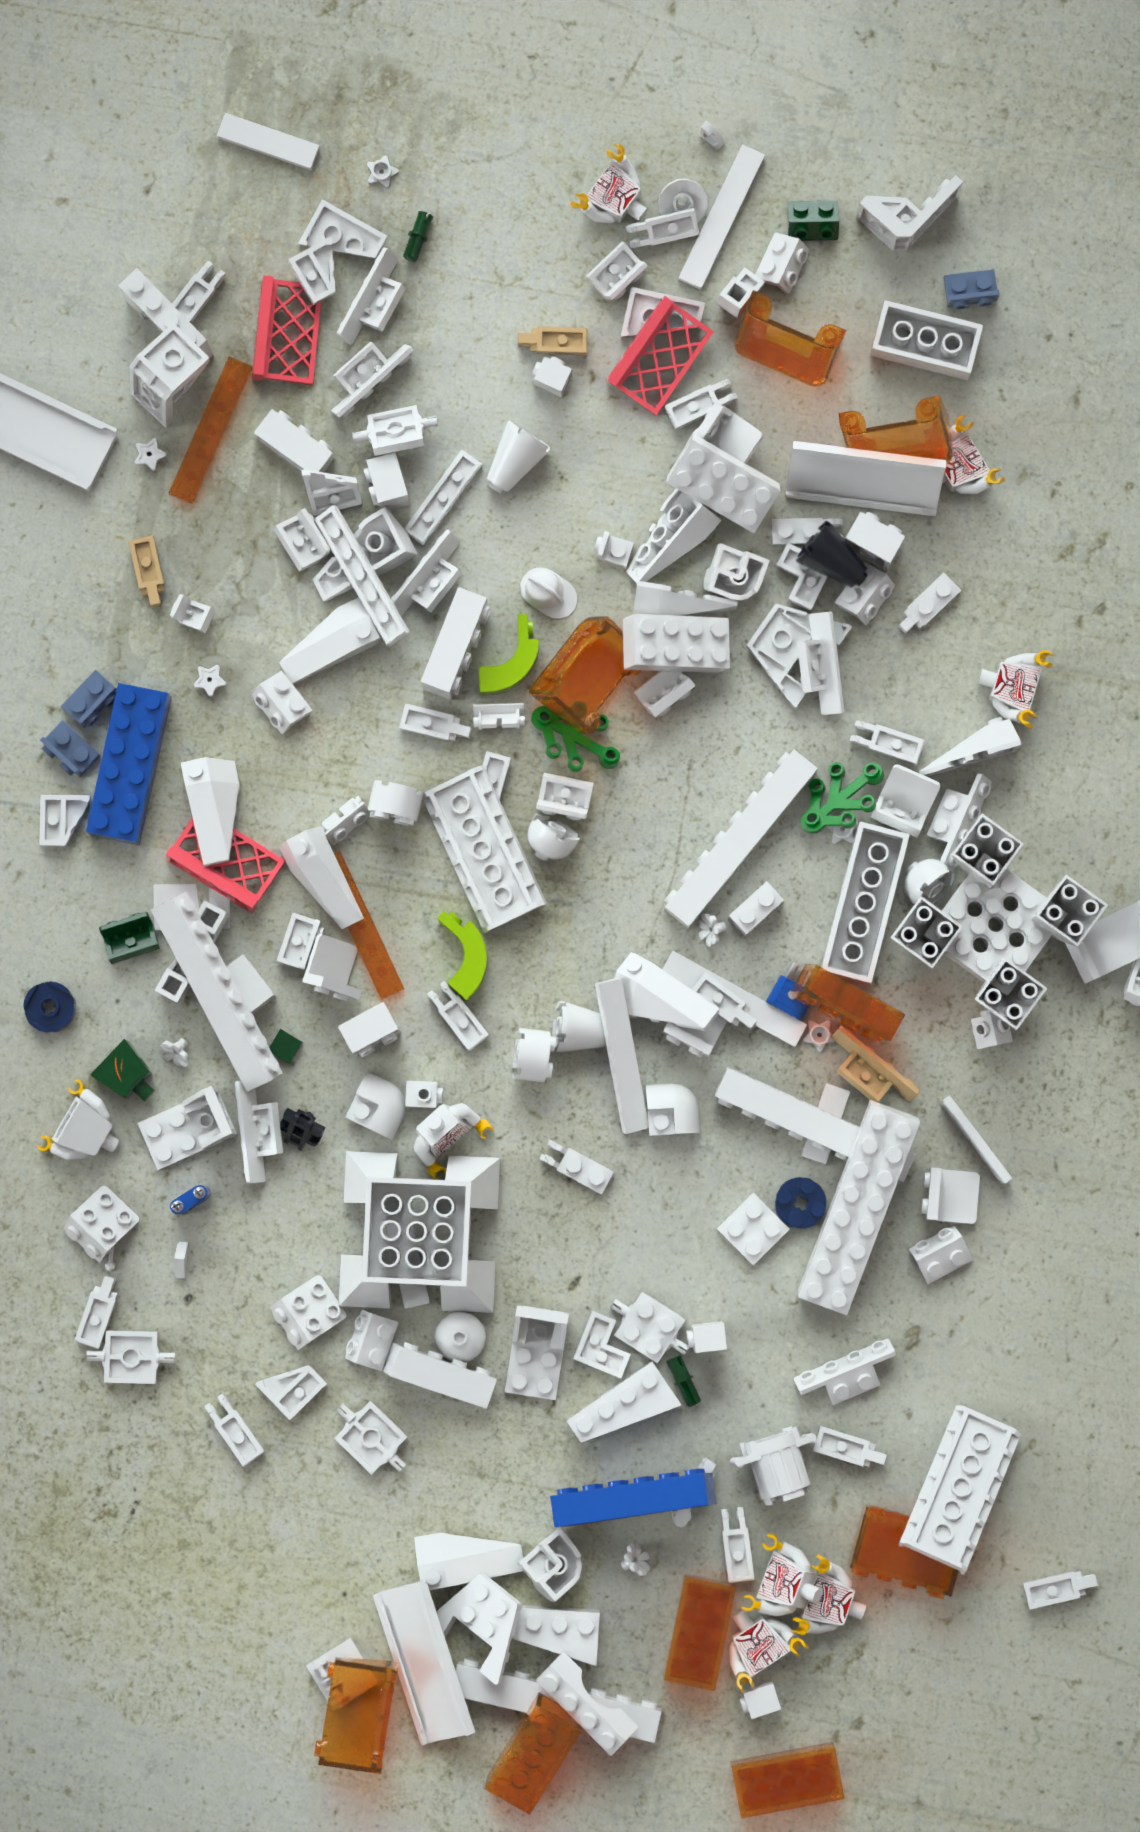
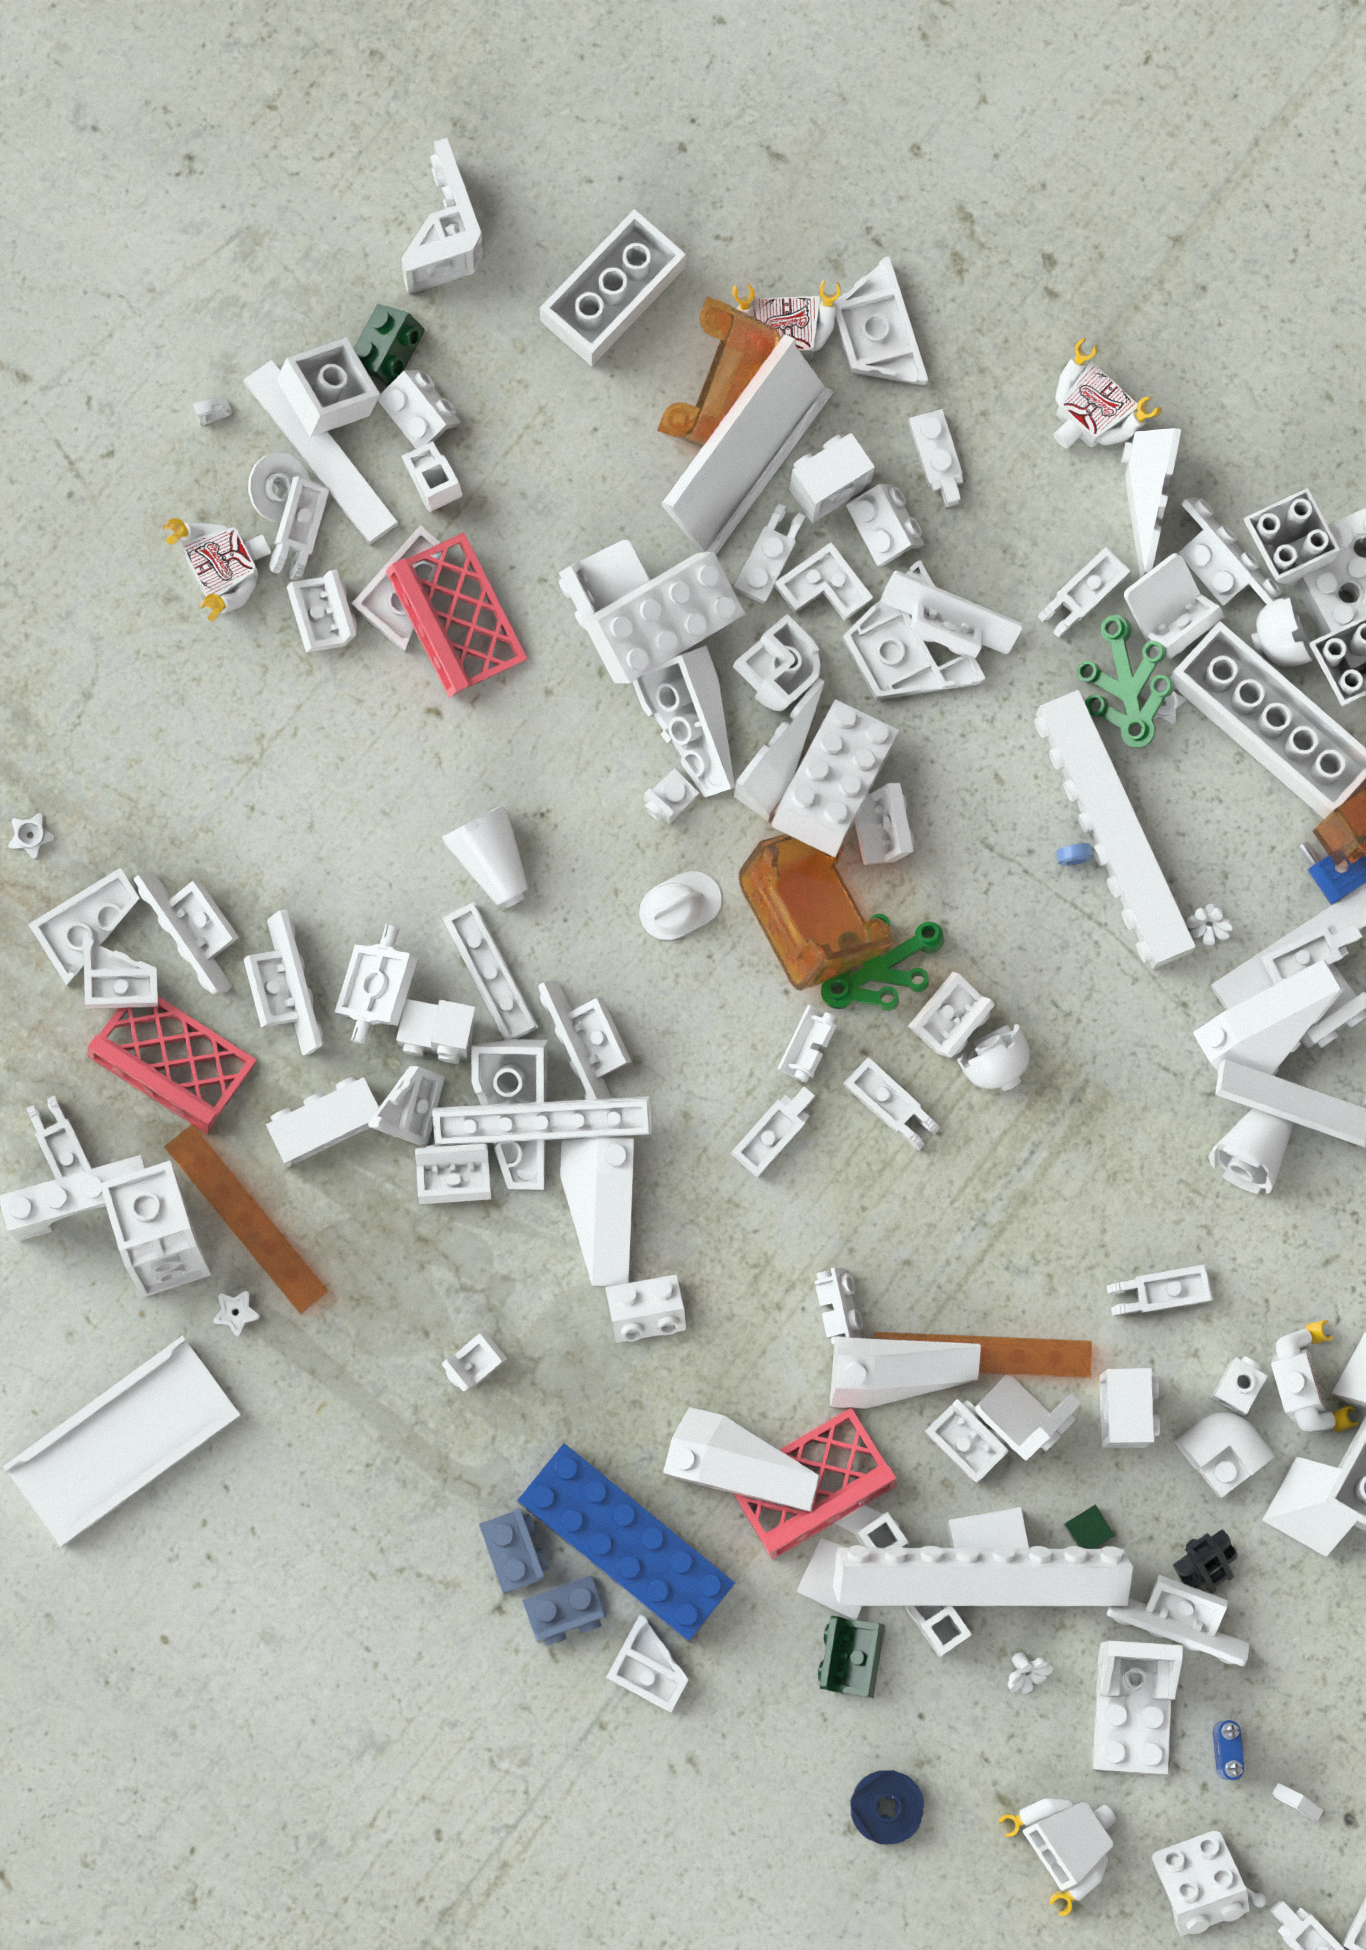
camera: 75 degrees left, 5 degrees down
(125, 1072) = (1022, 1752): dark green torso -> none
(147, 568) = (383, 1389): tan hinge -> none
(204, 674) = (568, 1395): white plate -> none
(395, 802) = (854, 1229): white brick -> none
(417, 236) = (139, 831): dark green axle -> none
(454, 644) = (690, 1049): white brick -> none
(474, 966) = (1101, 1232): lime arch -> none
(483, 849) = (967, 1150): white ladder -> none
(507, 676) = (758, 987): lime arch -> none
(532, 1055) = (1261, 1221): white brick -> none
(552, 375) = (409, 757): white brick -> none
(555, 340) = (367, 731): tan hinge -> none
(695, 405) = (542, 602): white hinge -> none
(710, 821) = (1074, 854): none -> medium blue tile
(756, 909) = (1212, 855): white brick -> none
(762, 197) = (328, 387): none -> white brick
(785, 348) = (531, 460): clear orange windscreen -> none
(832, 557) = (824, 535): black cone -> none
(971, 288) = (573, 204): sand blue bracket -> none
(992, 522) = (878, 329): none -> white wing

